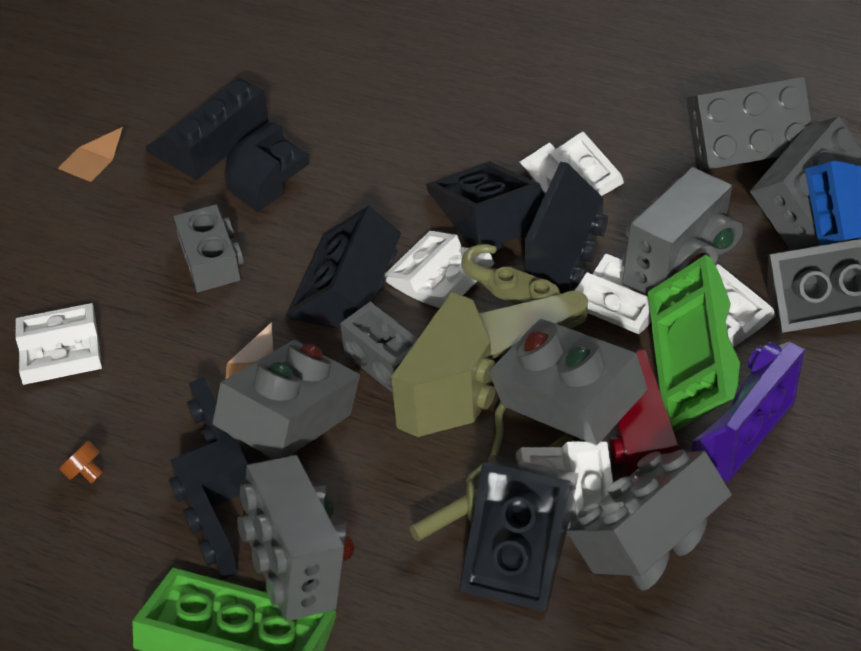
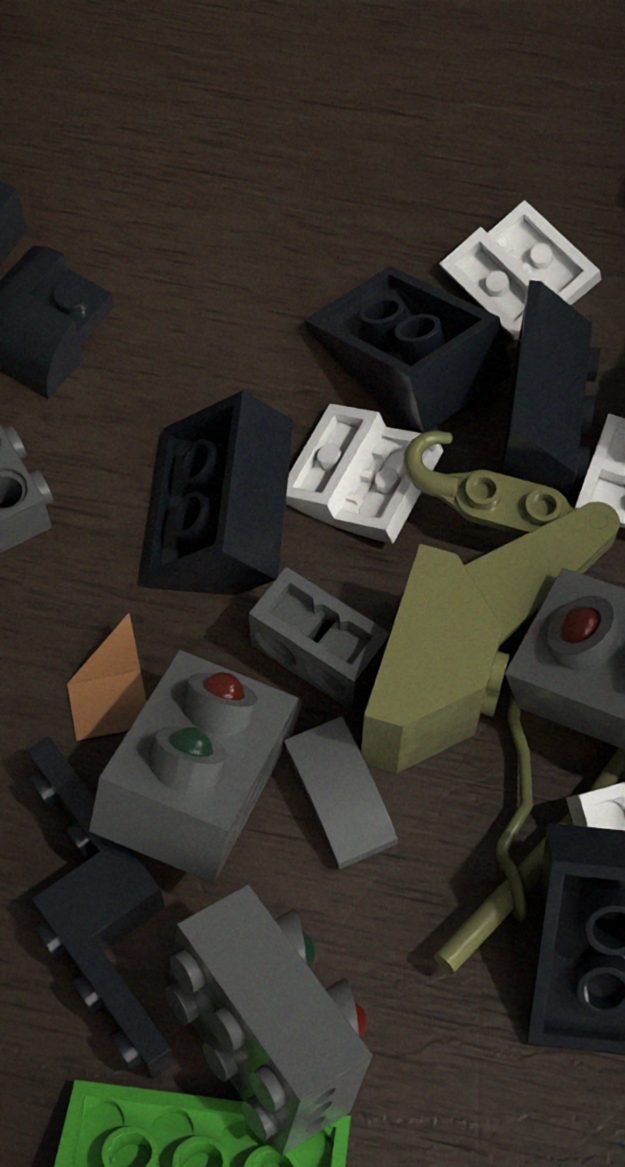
camera: 15 degrees left, 15 degrees up
(377, 437) = (341, 792): none -> dark grey slope

